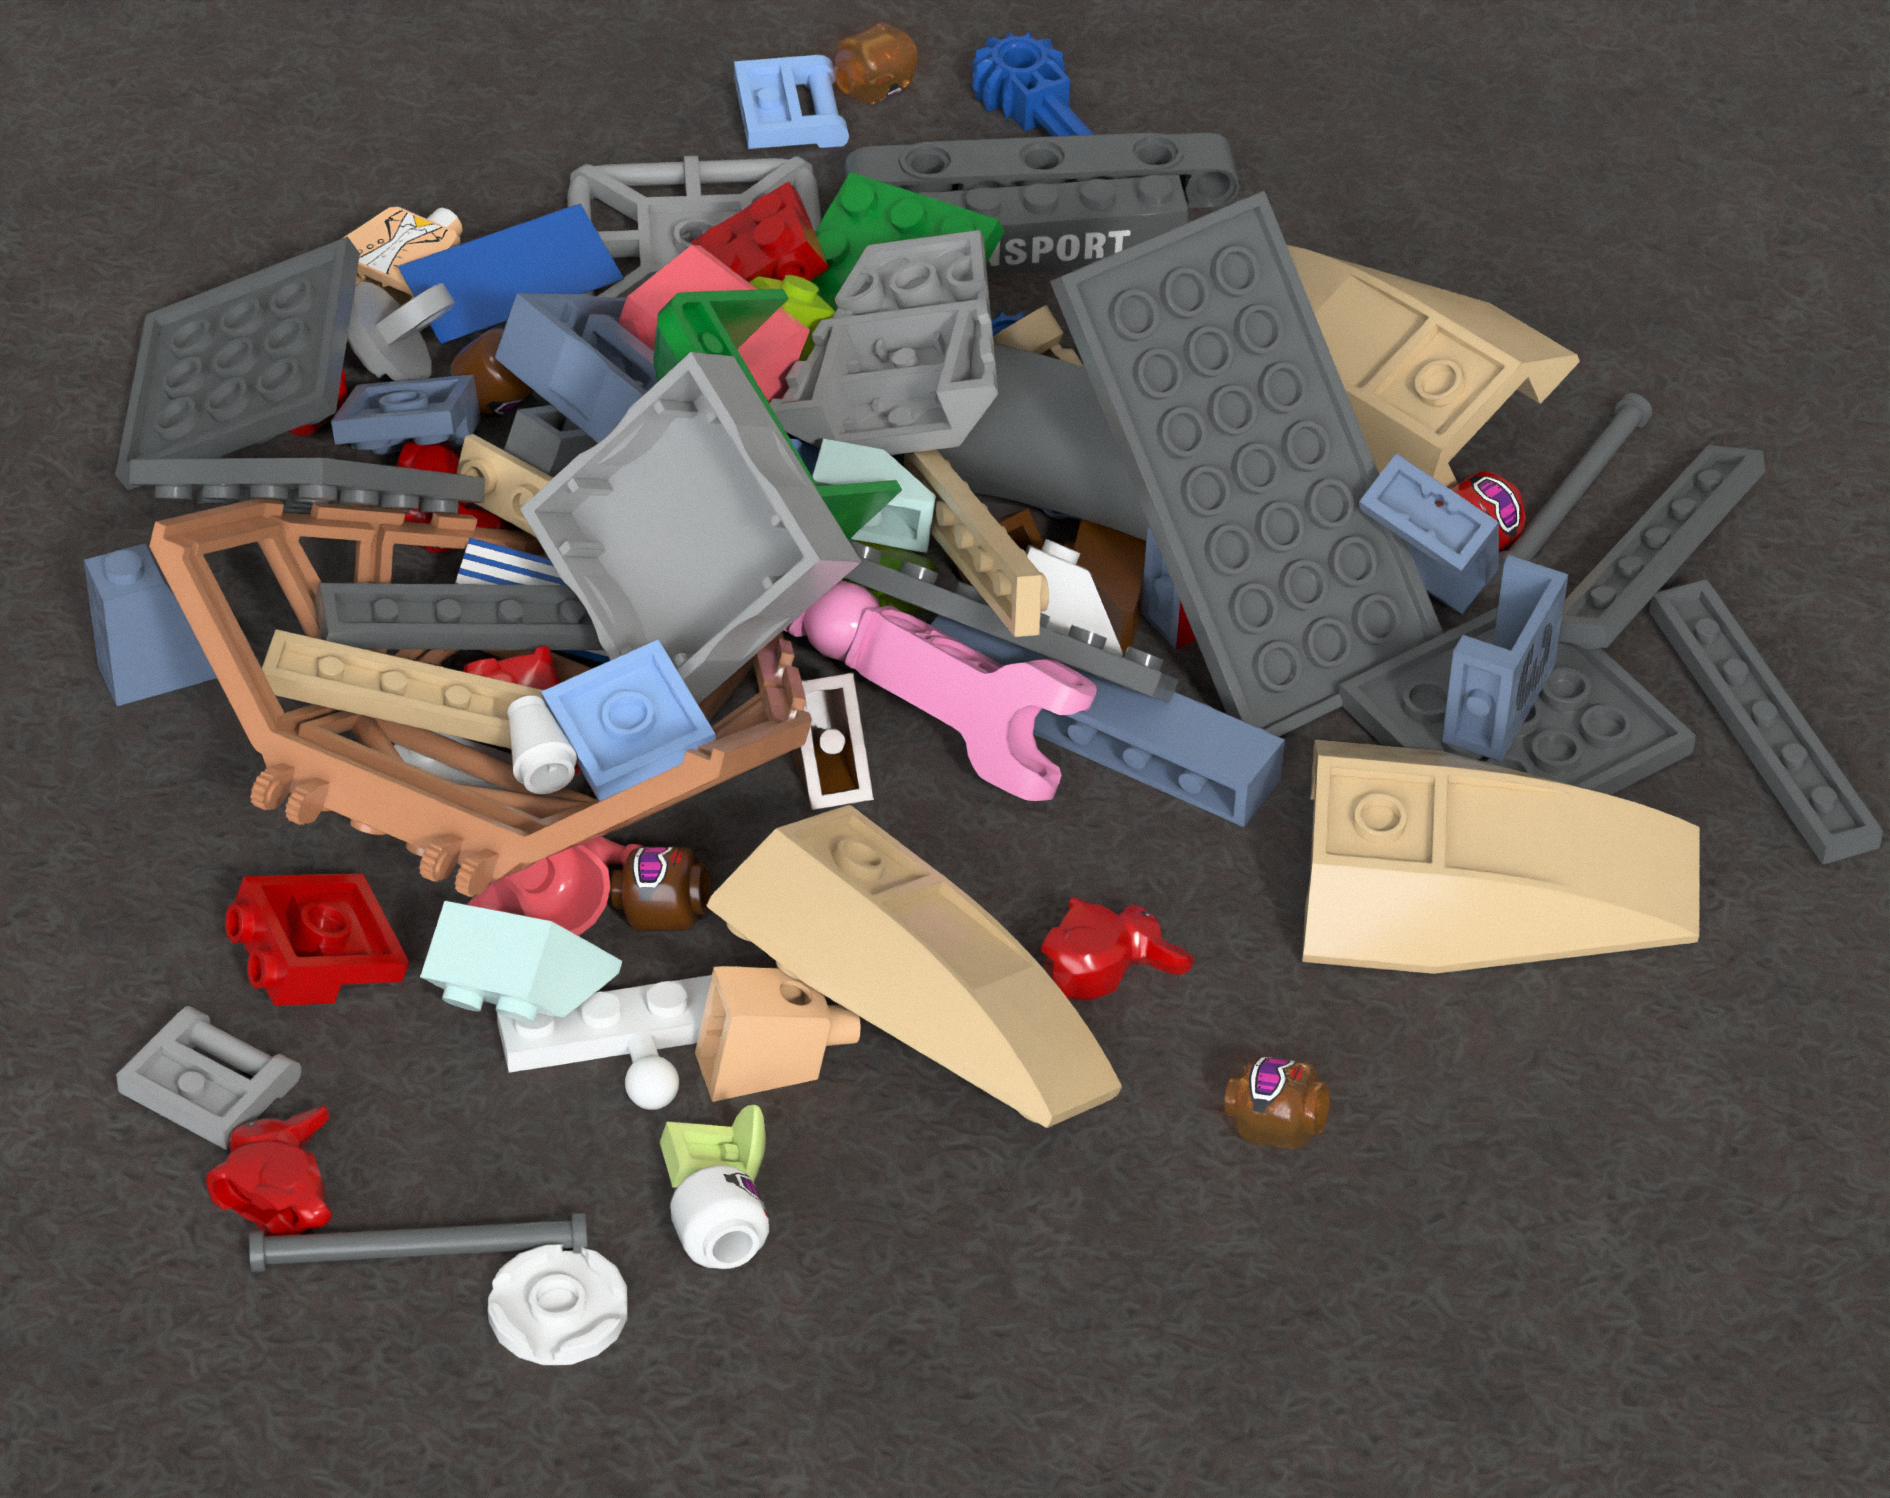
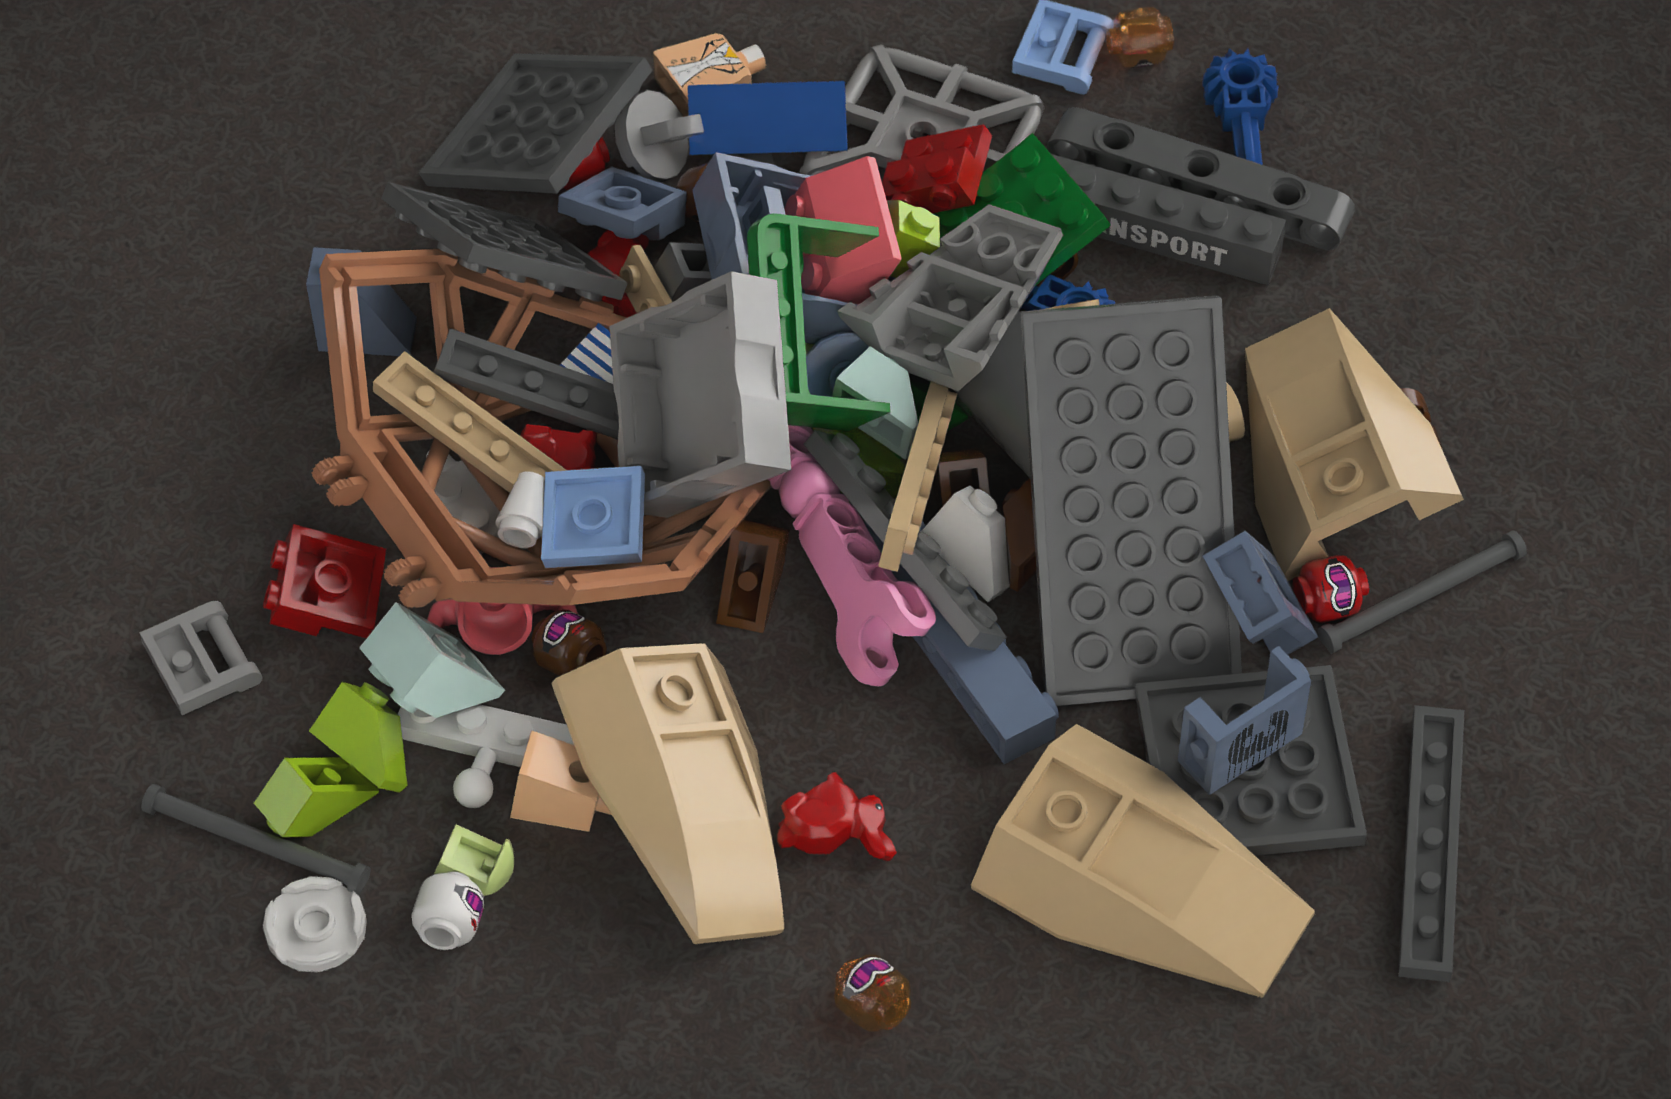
camera: 30 degrees right, 10 degrees up
(272, 1176) = (192, 751): red animal -> none
(460, 1165) = (311, 795): none -> lime slope
(481, 1070) = (364, 734): none -> lime slope
(1658, 545) = (1441, 668): dark grey plate -> none

